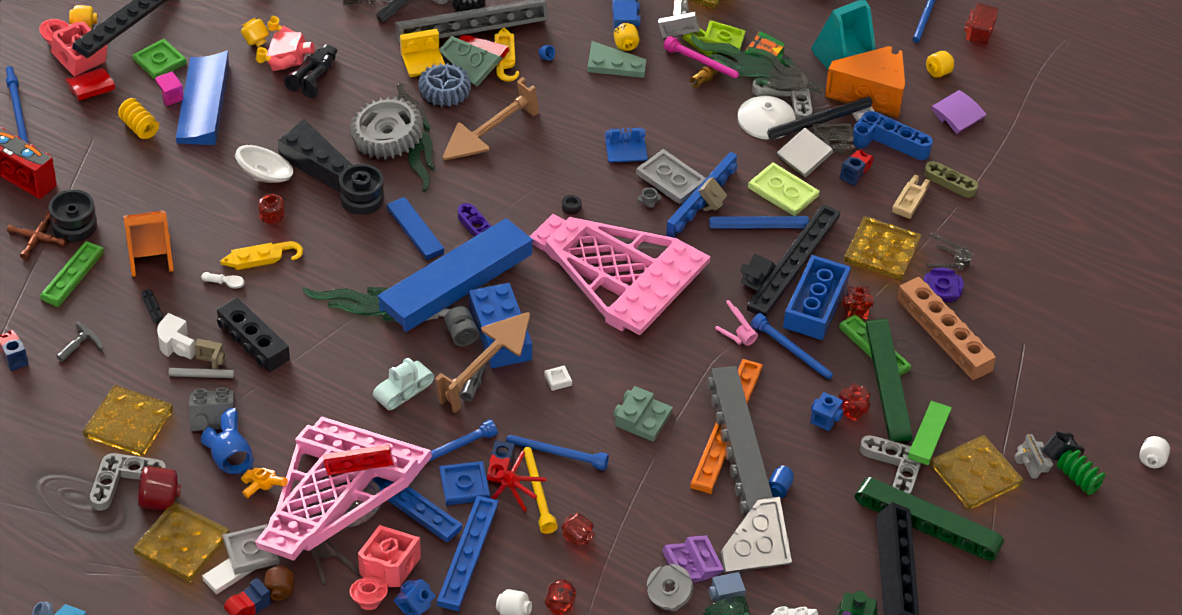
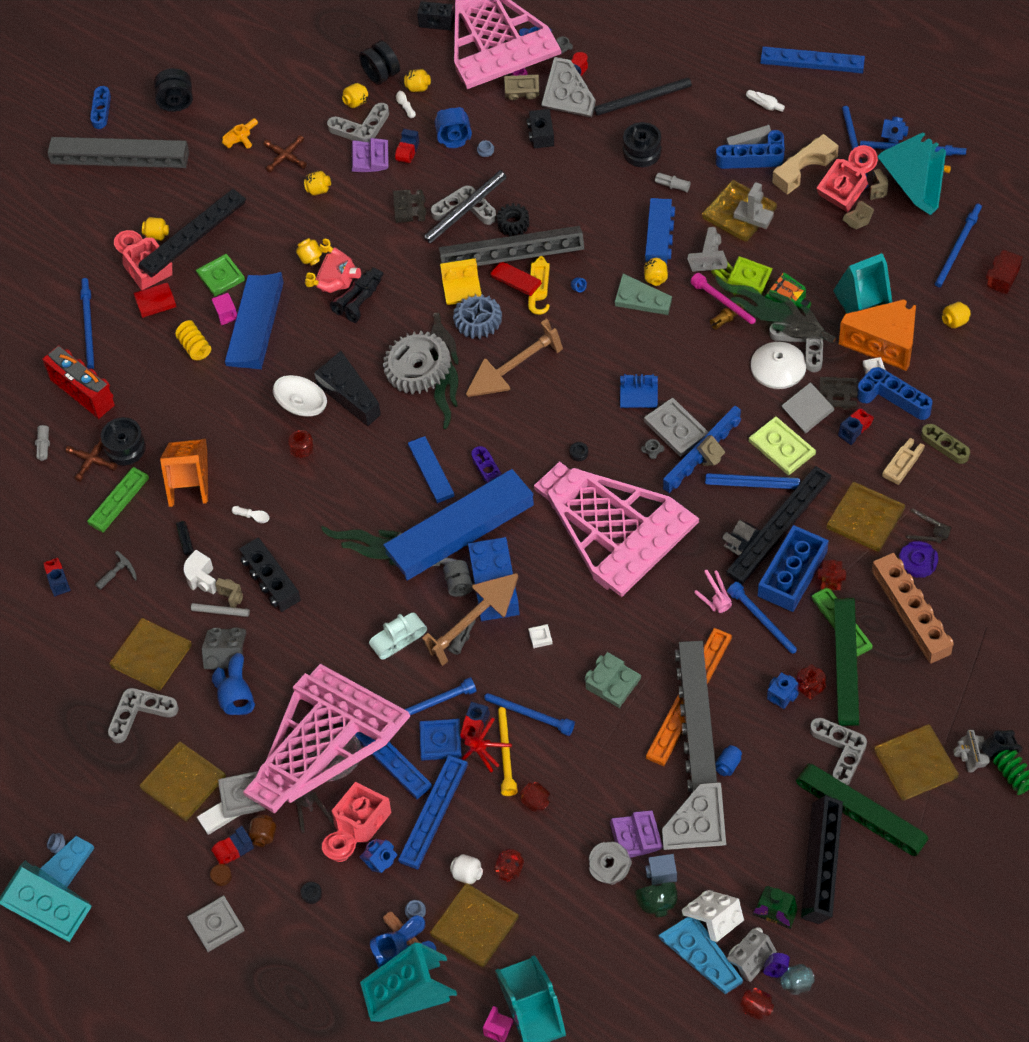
camera: 15 degrees right, 10 degrees up
(158, 488) = (167, 728): dark red head -> none
(260, 255) = (287, 489): yellow plate -> none
(261, 478) = (260, 724): light orange piece -> none
(358, 459) = (341, 719): red tile -> none
(361, 189) = (385, 426): black wheel -> none
(471, 58) = (504, 290): sand green wing -> none
(820, 117) = (828, 370): black axle -> none
(929, 433) = (877, 719): bright green tile -> none
(958, 111) = (965, 368): medium lavender slope -> none

